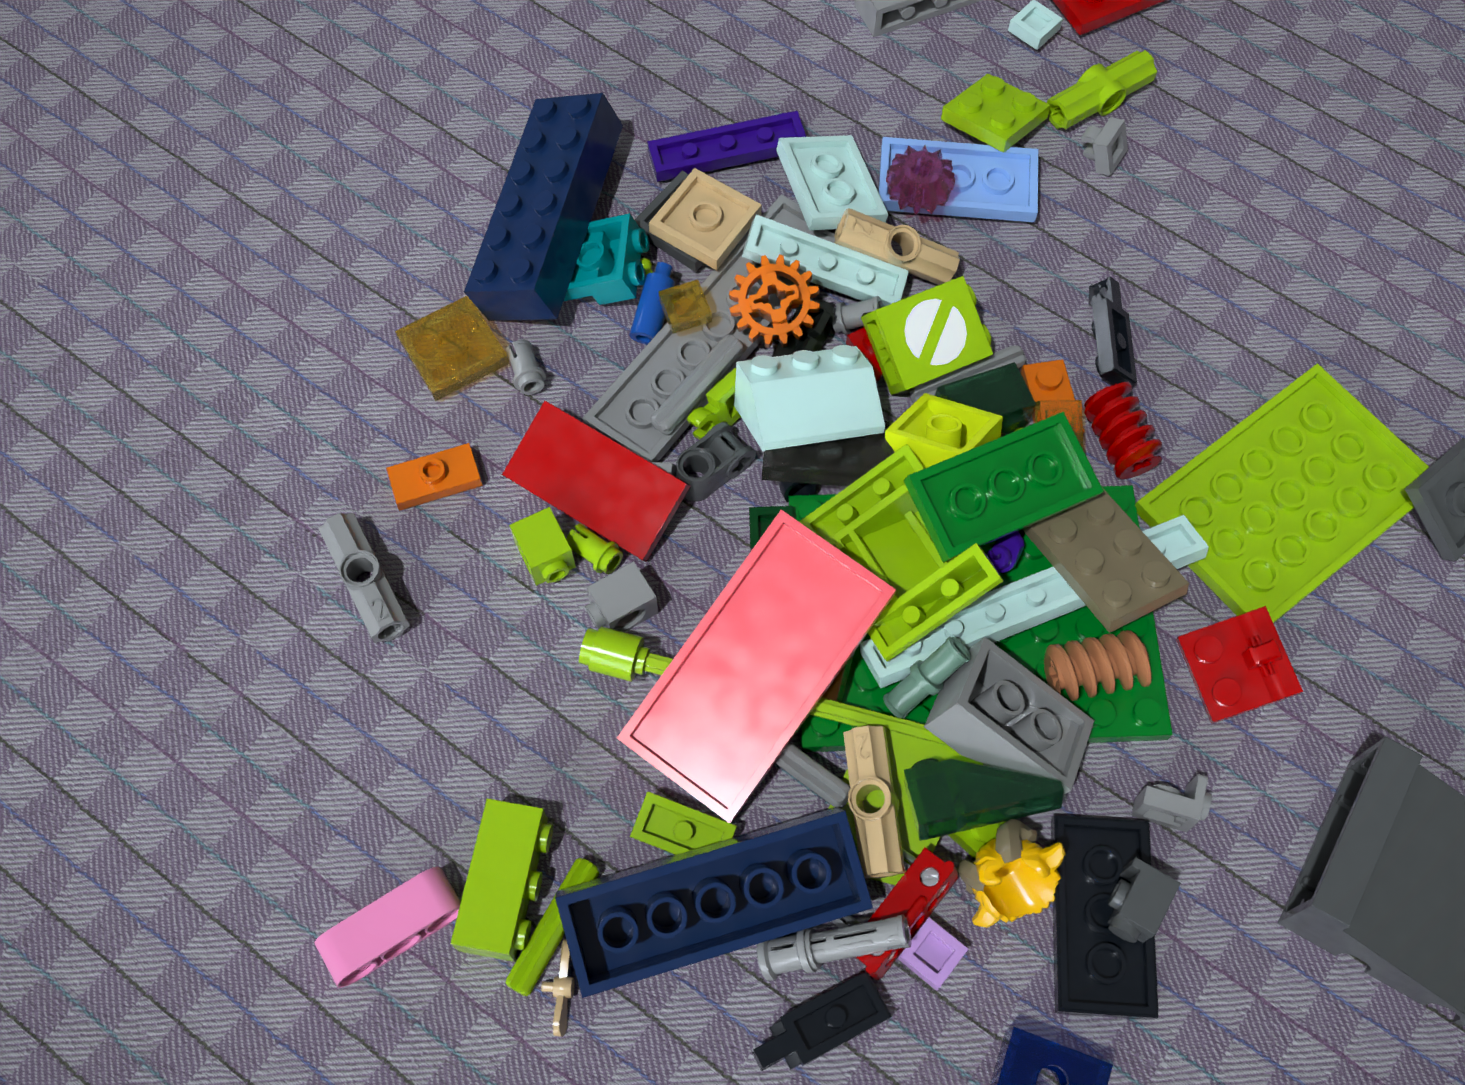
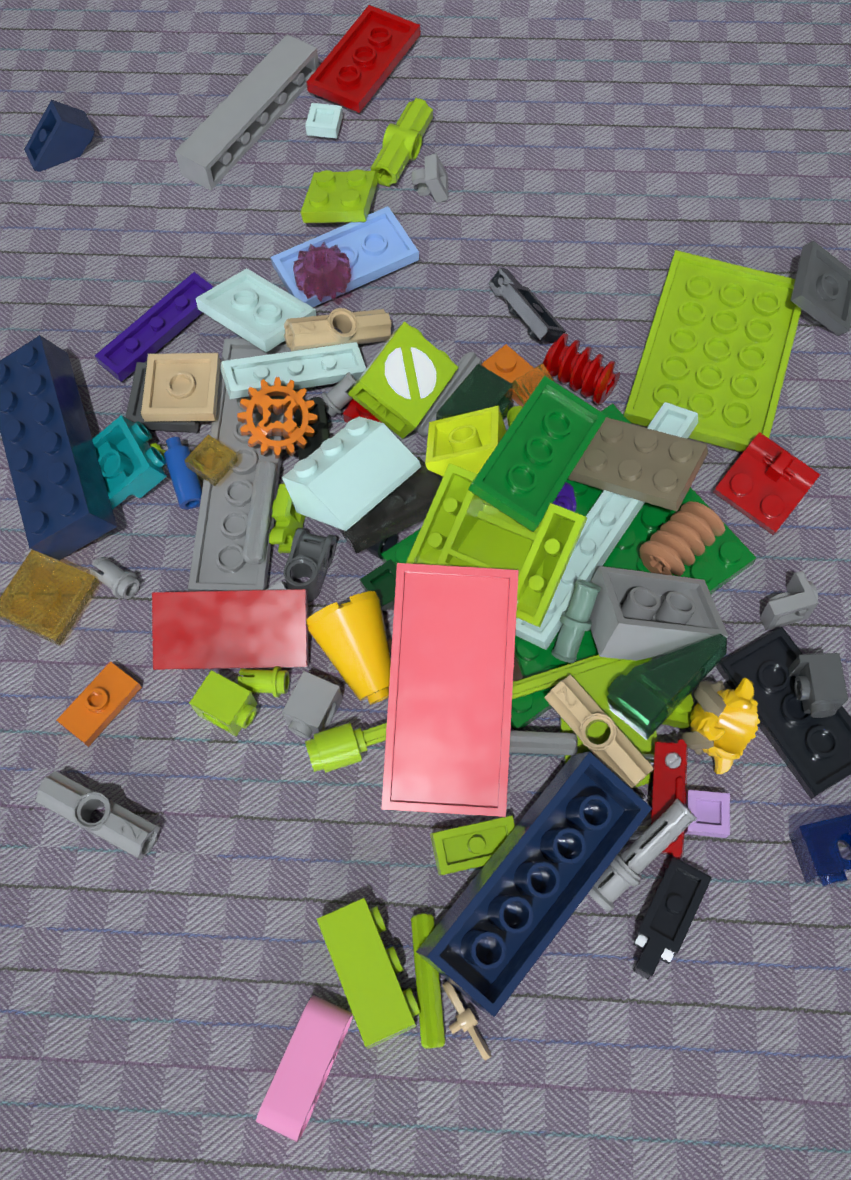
camera: 30 degrees left, 0 degrees up
(700, 563) = (356, 644): none -> yellow cone

